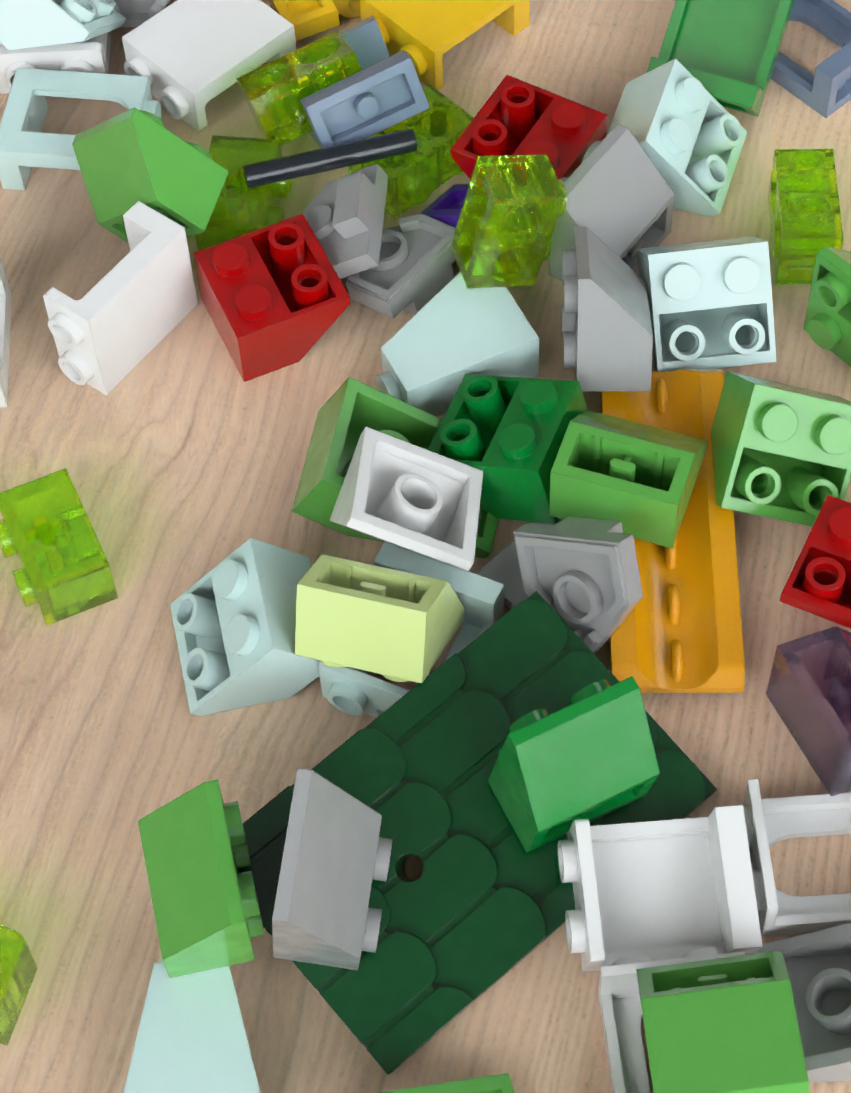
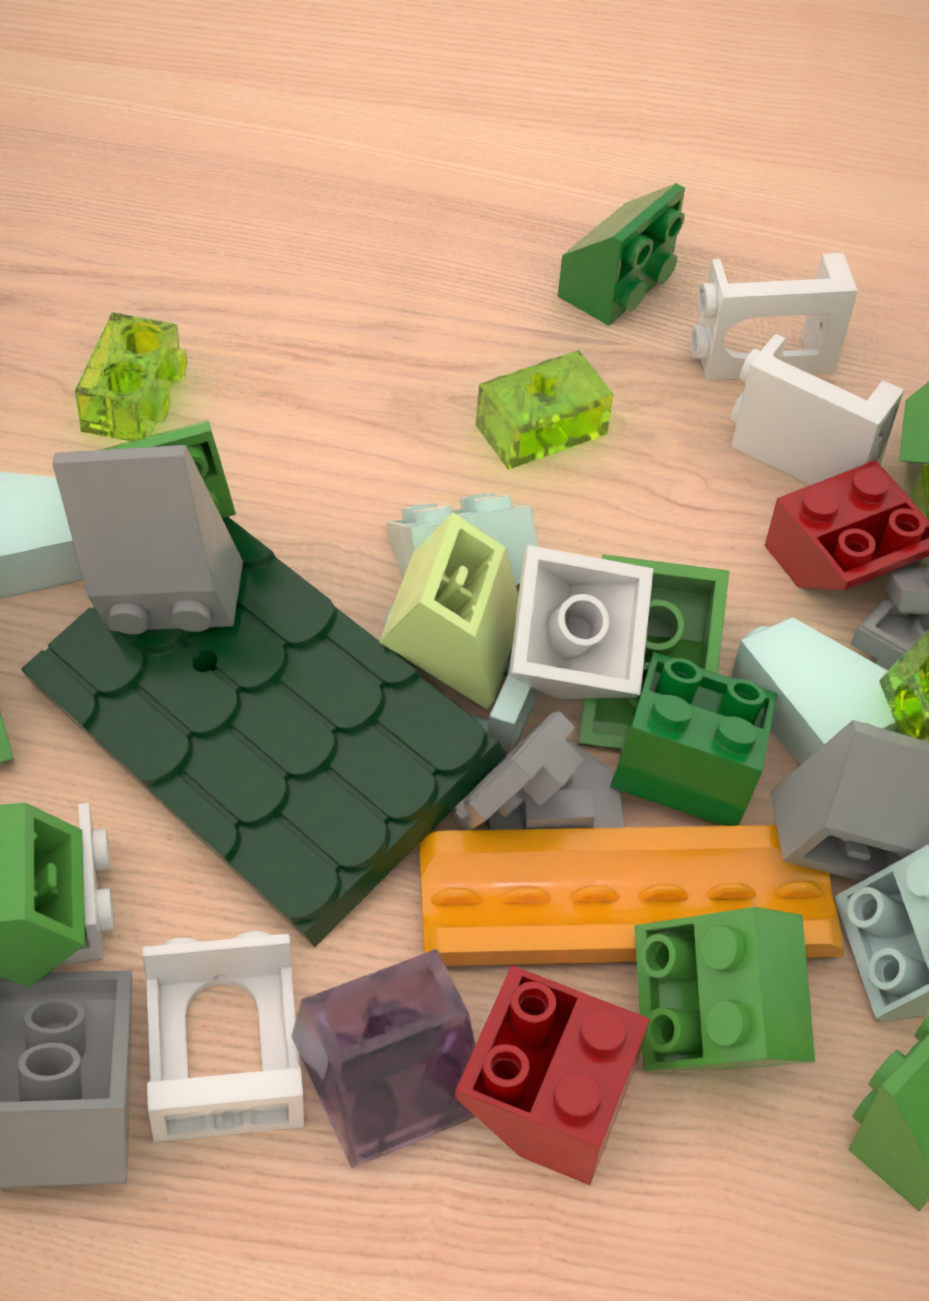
camera: 80 degrees right, 5 degrees down
(575, 762) = (284, 755): slope -> none
(625, 475) = (660, 822): bright green slope -> none
(660, 888) = (177, 859): white panel -> none

